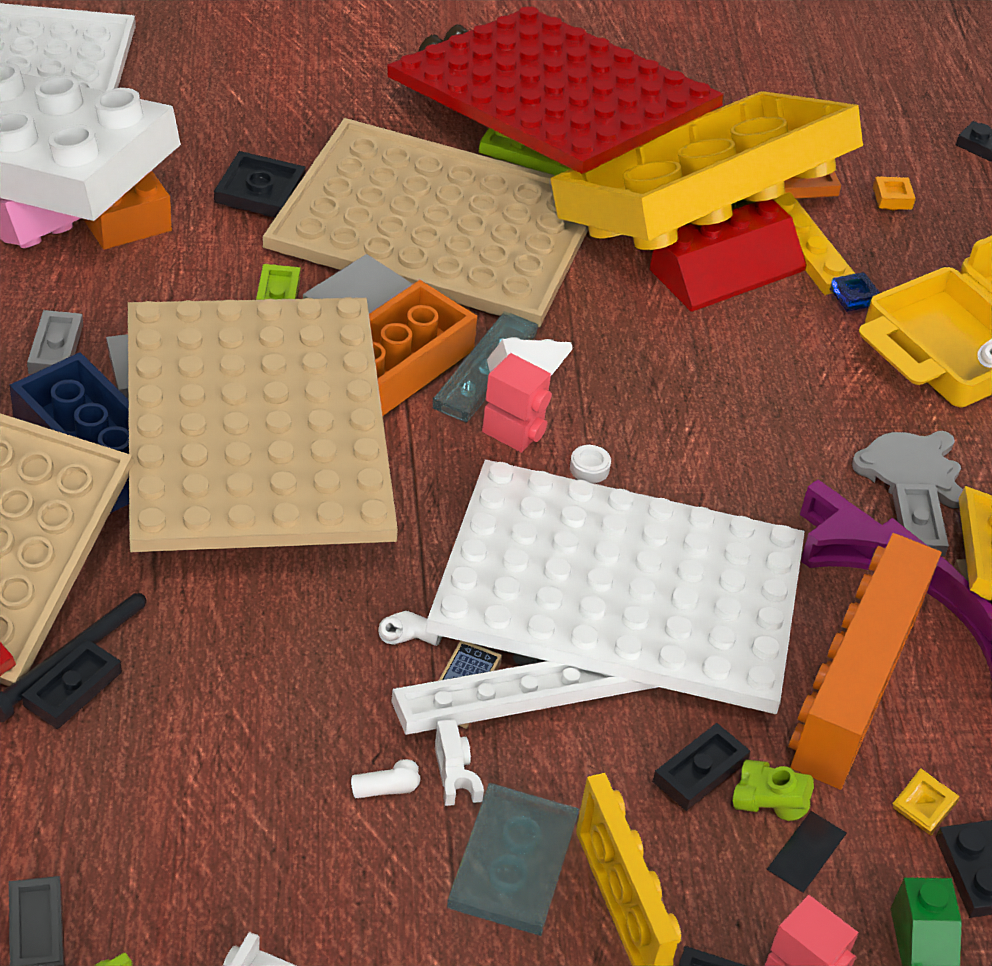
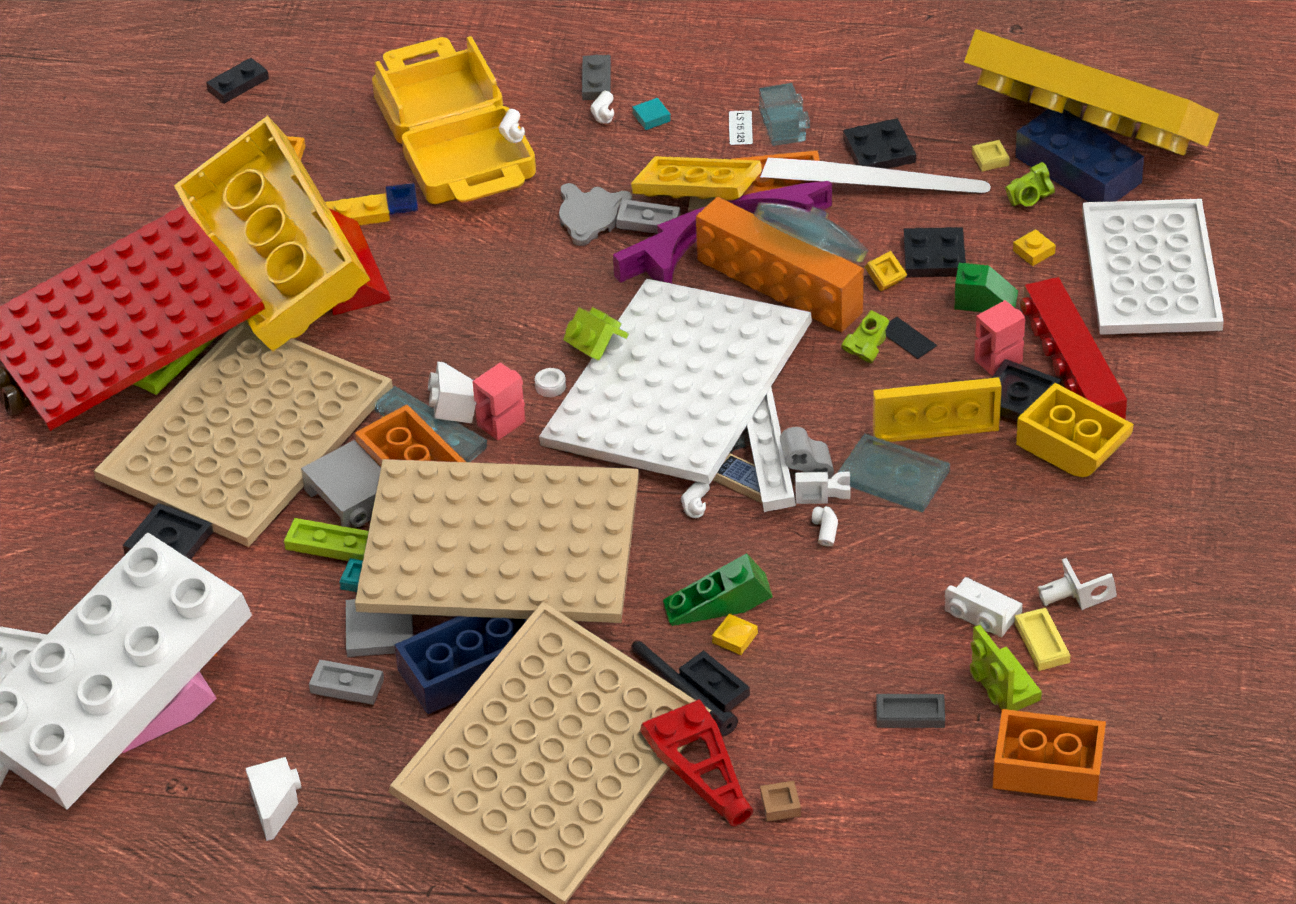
camera: 70 degrees left, 0 degrees up
(168, 700) = (735, 634): none -> yellow tile
(232, 673) = (723, 592): none -> green slope
(500, 732) = (804, 453): none -> light grey axle
(677, 480) = (592, 331): none -> lime bracket
(701, 766) = (841, 368): black plate -> none
(930, 677) = (812, 228): none -> clear light blue dish

